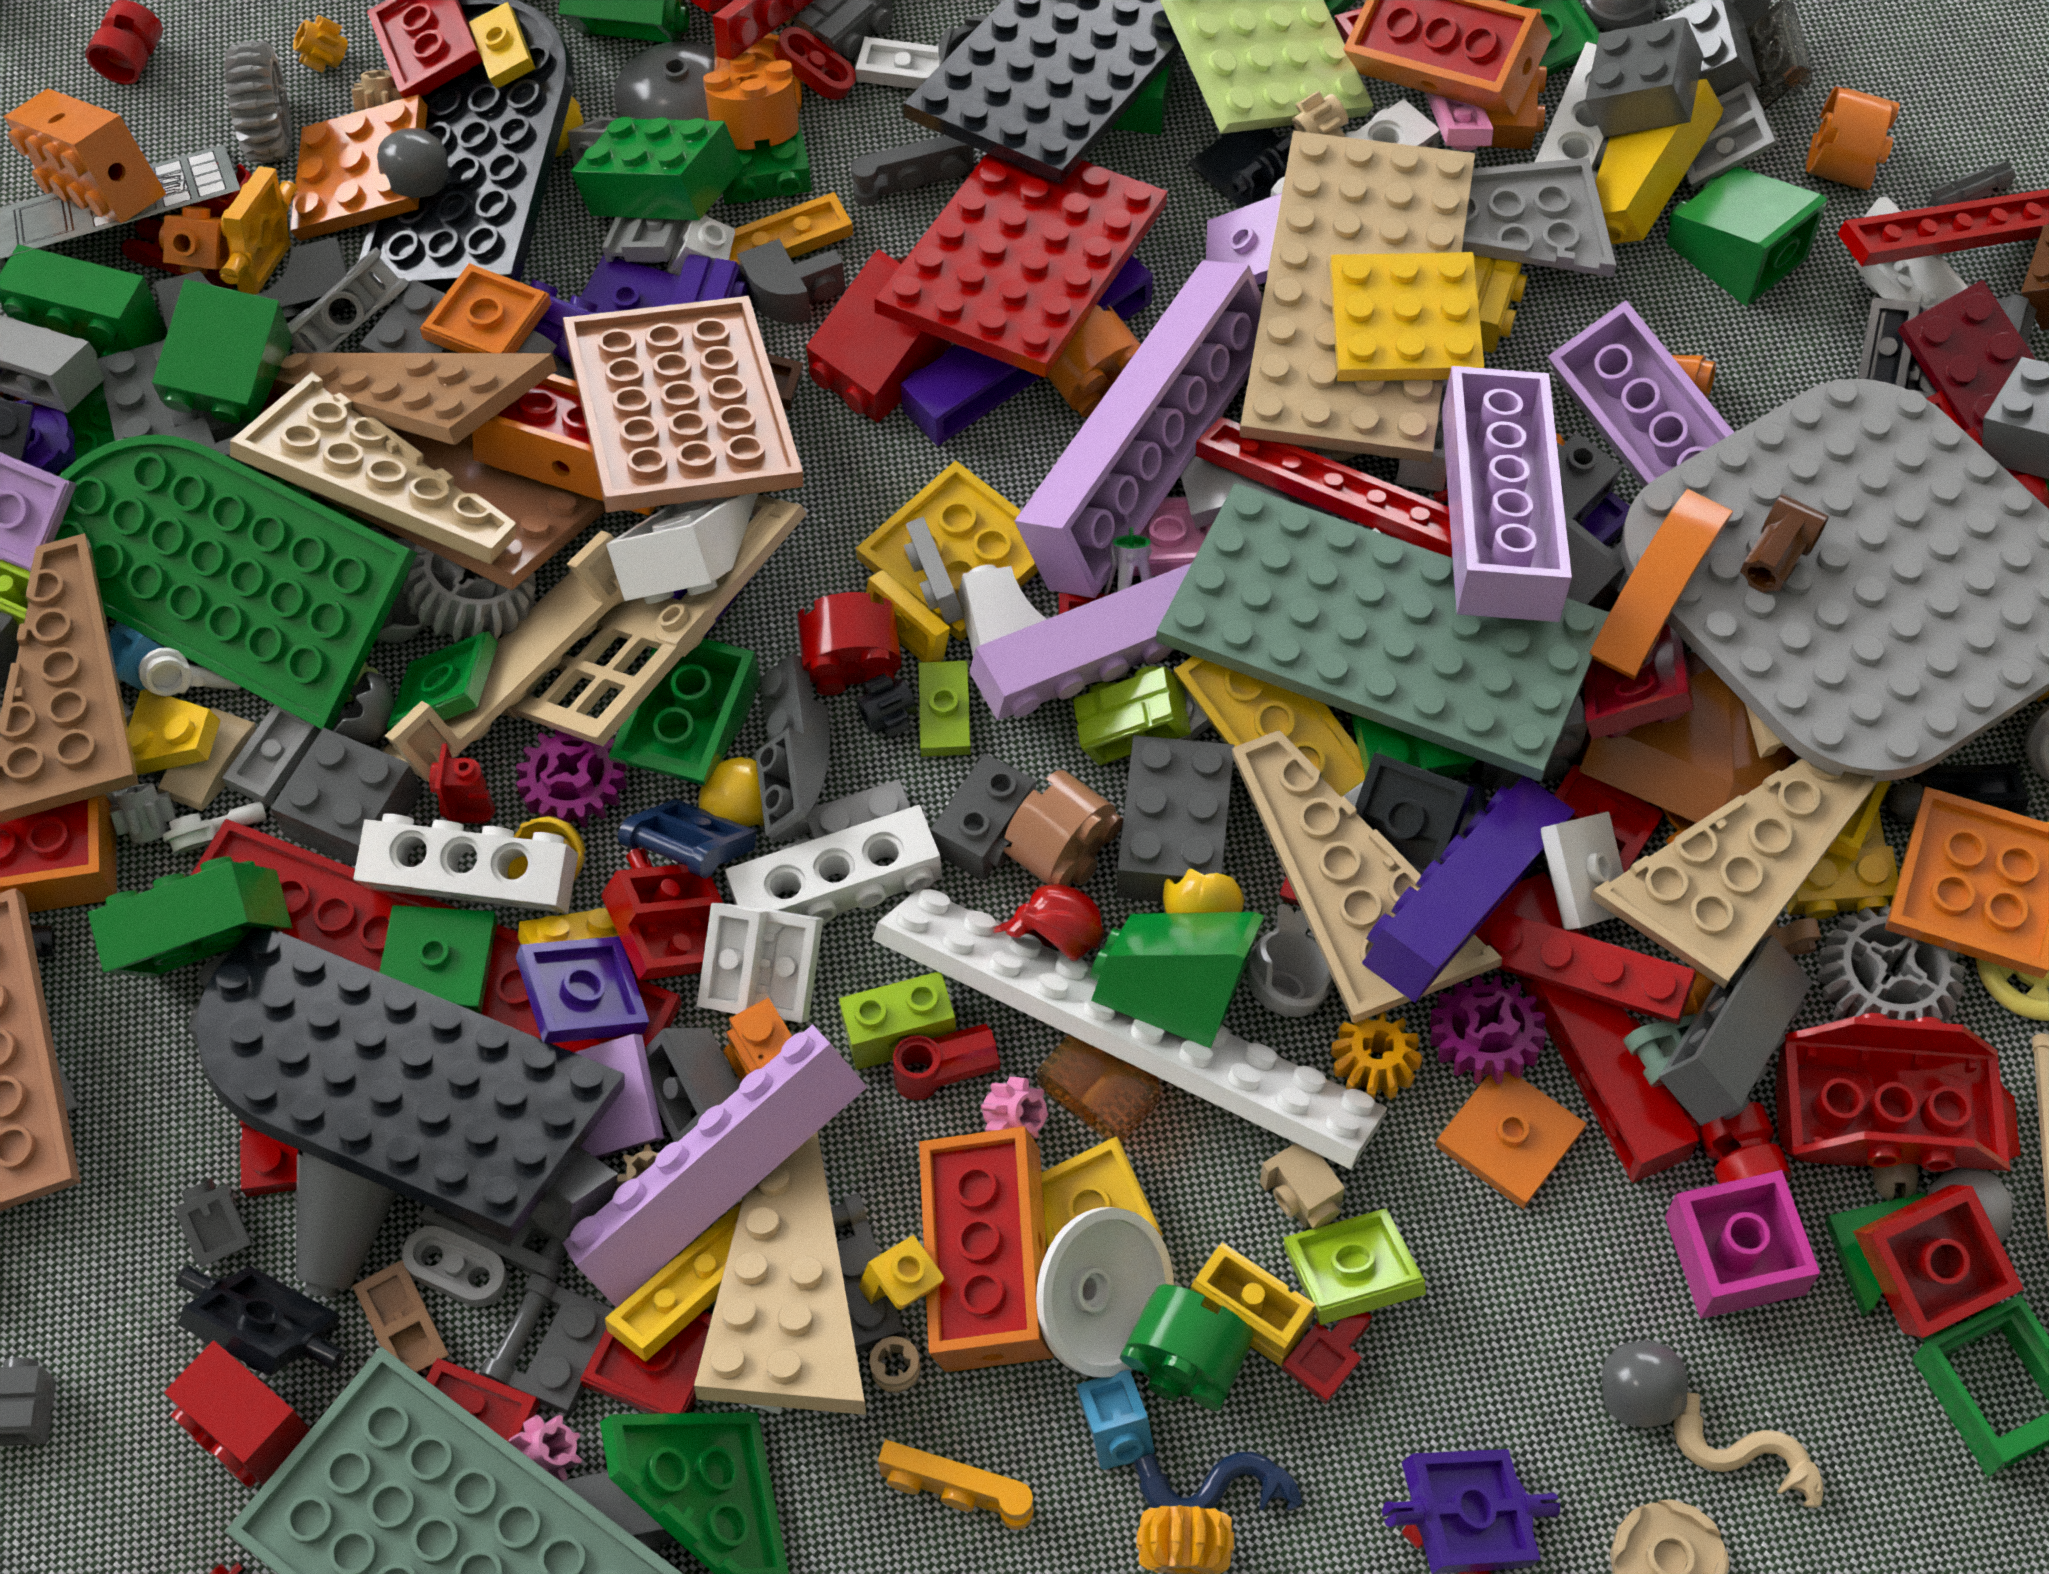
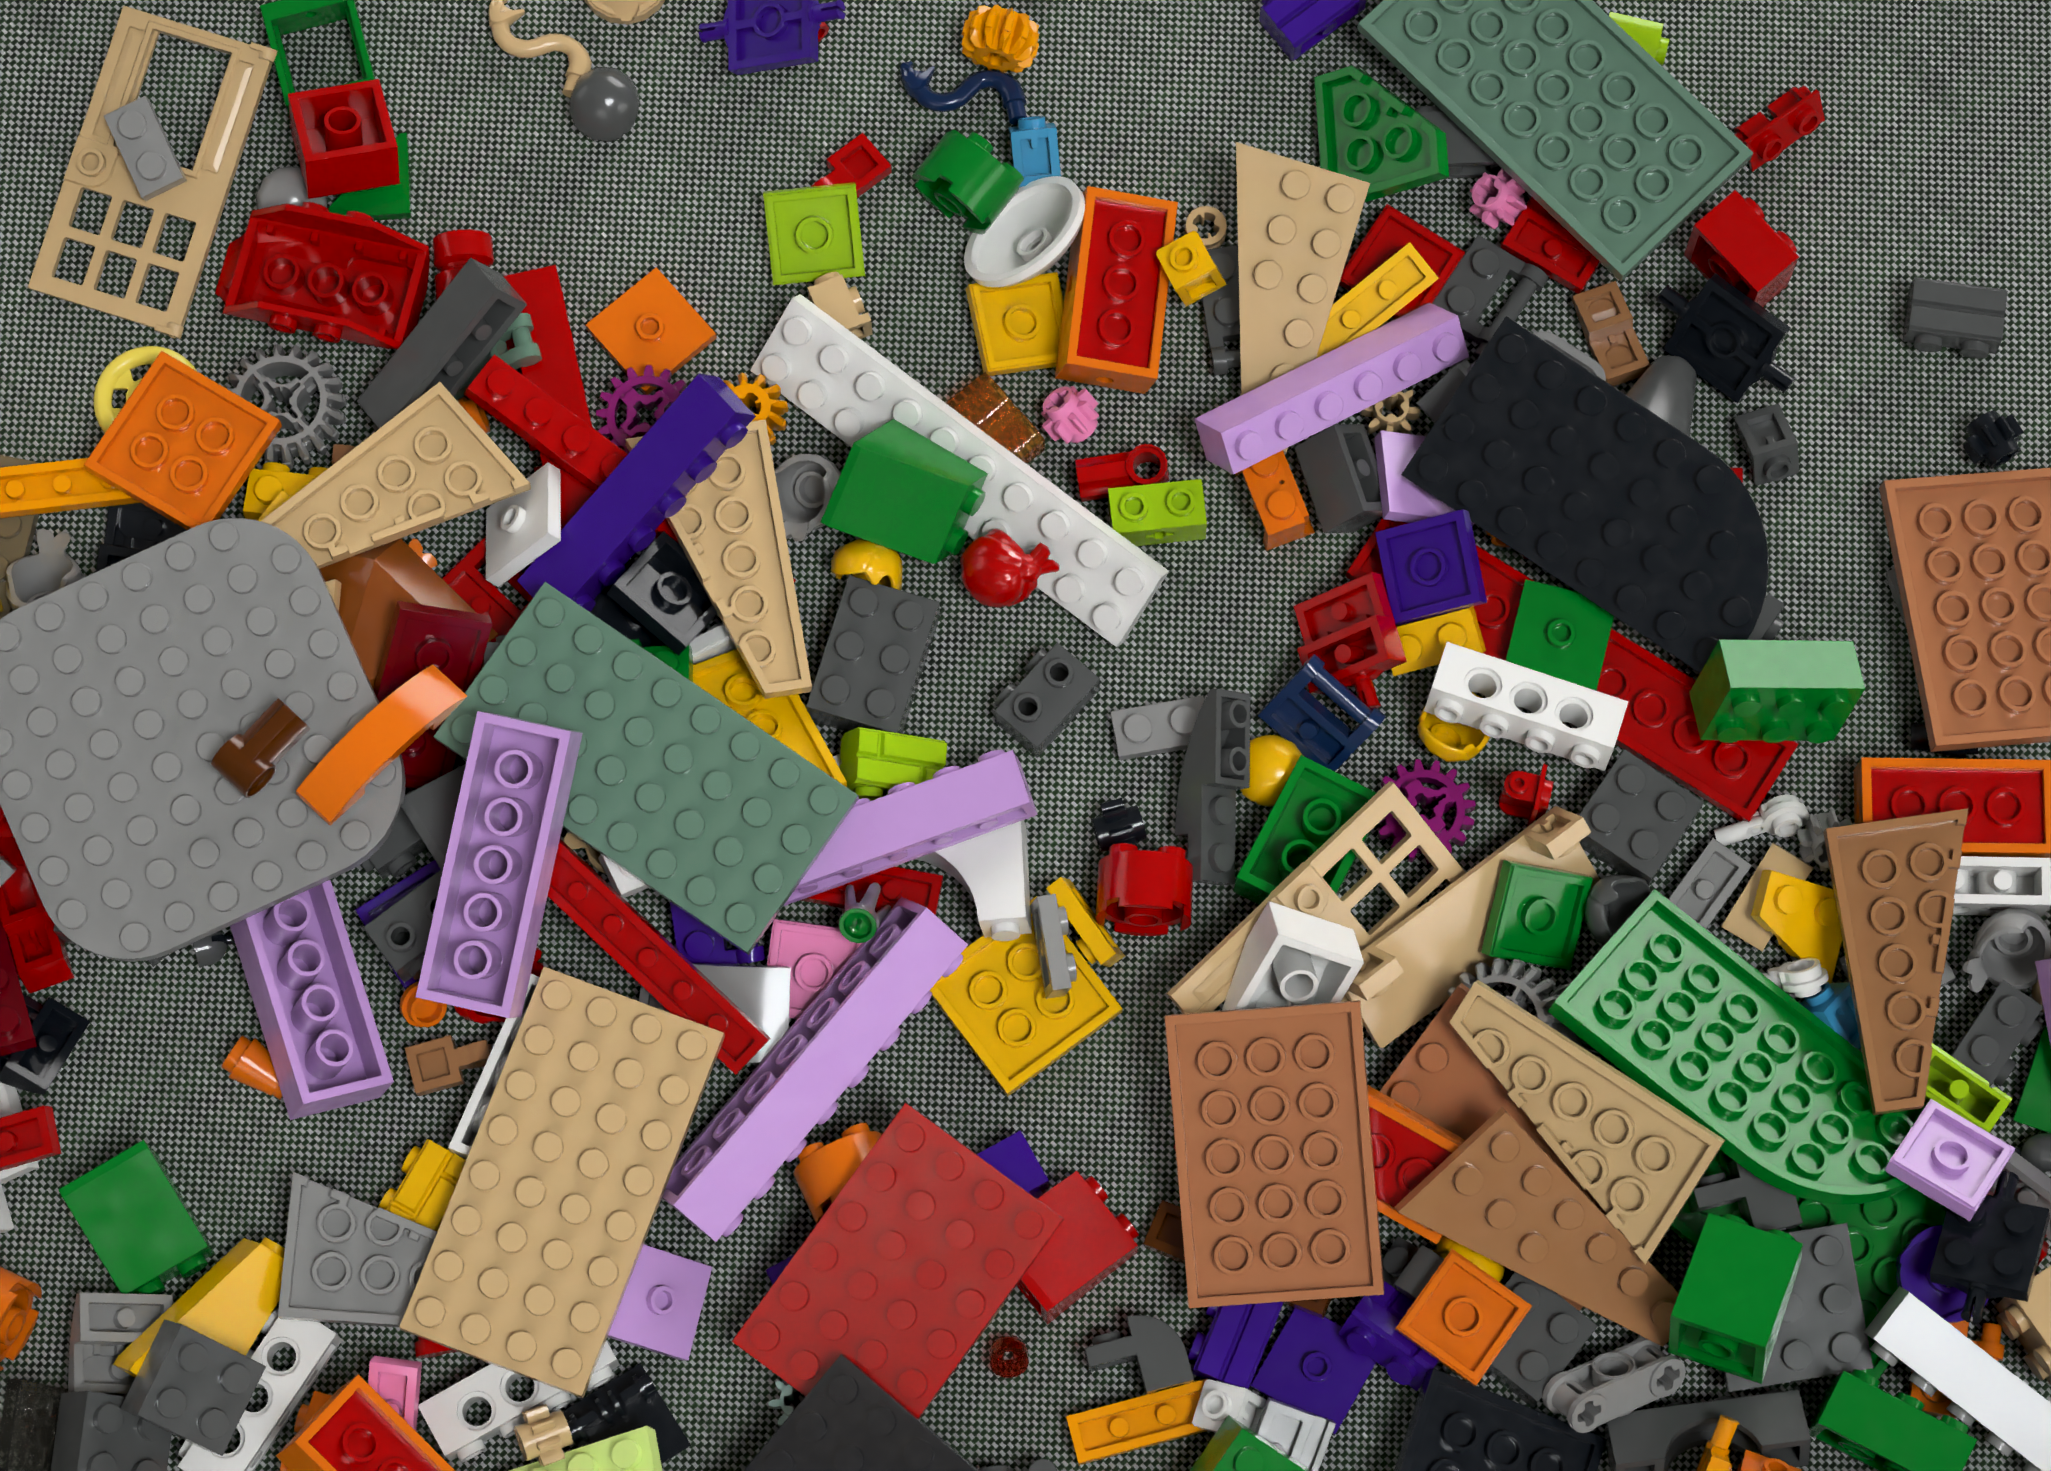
camera: 170 degrees left, 15 degrees up
(759, 956) = (1270, 585): white slope -> none
(846, 852) = (1257, 634): white brick -> none
(944, 708) = (1064, 829): lime plate -> none
(958, 1483) = (1171, 120): light orange plate -> none
(1062, 830) = (980, 654): nougat brick -> none
(1258, 1298) = (906, 210): yellow brick -> none
(1404, 315) = (531, 1115): yellow plate -> none
(1741, 1244) = (495, 187): dark pink brick -> none

